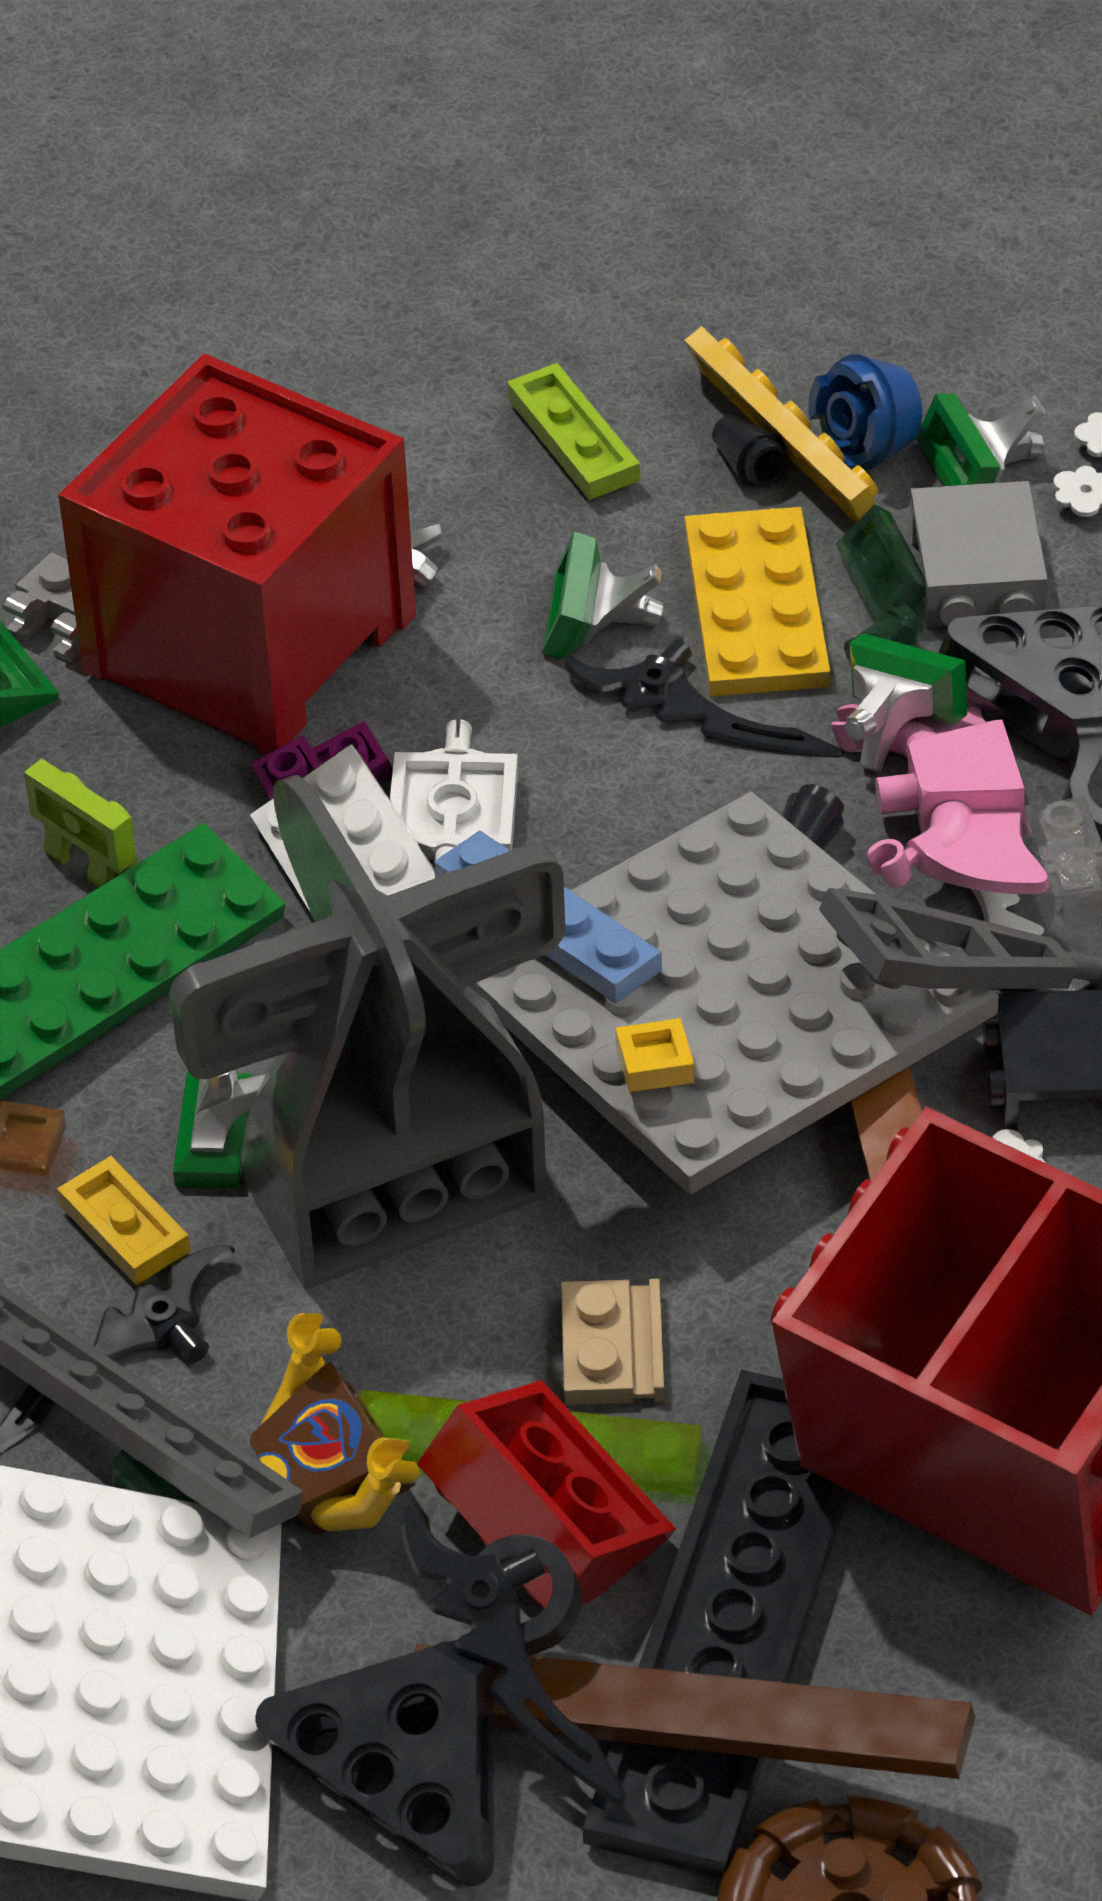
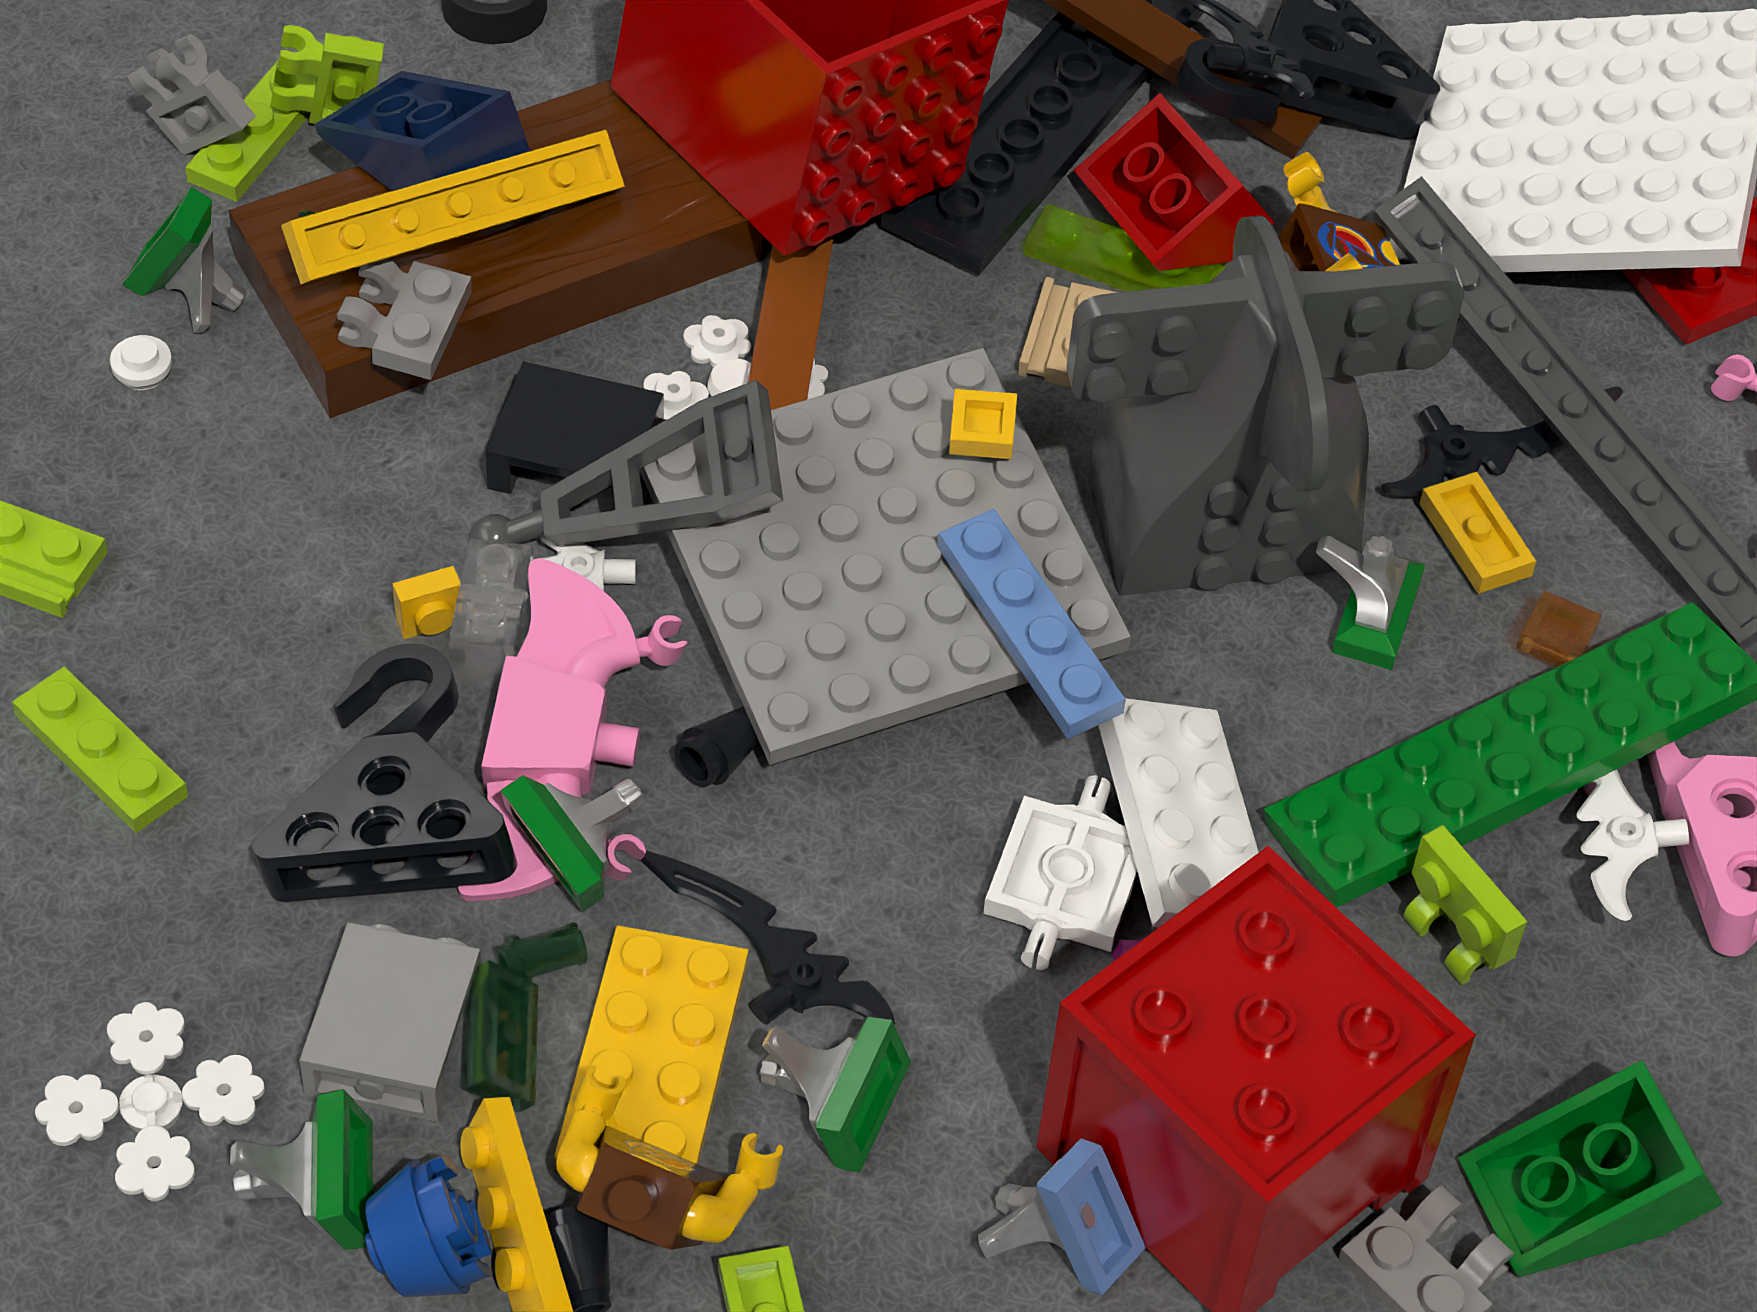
camera: 170 degrees left, 5 degrees up
(710, 465) = (651, 1188): none -> torso

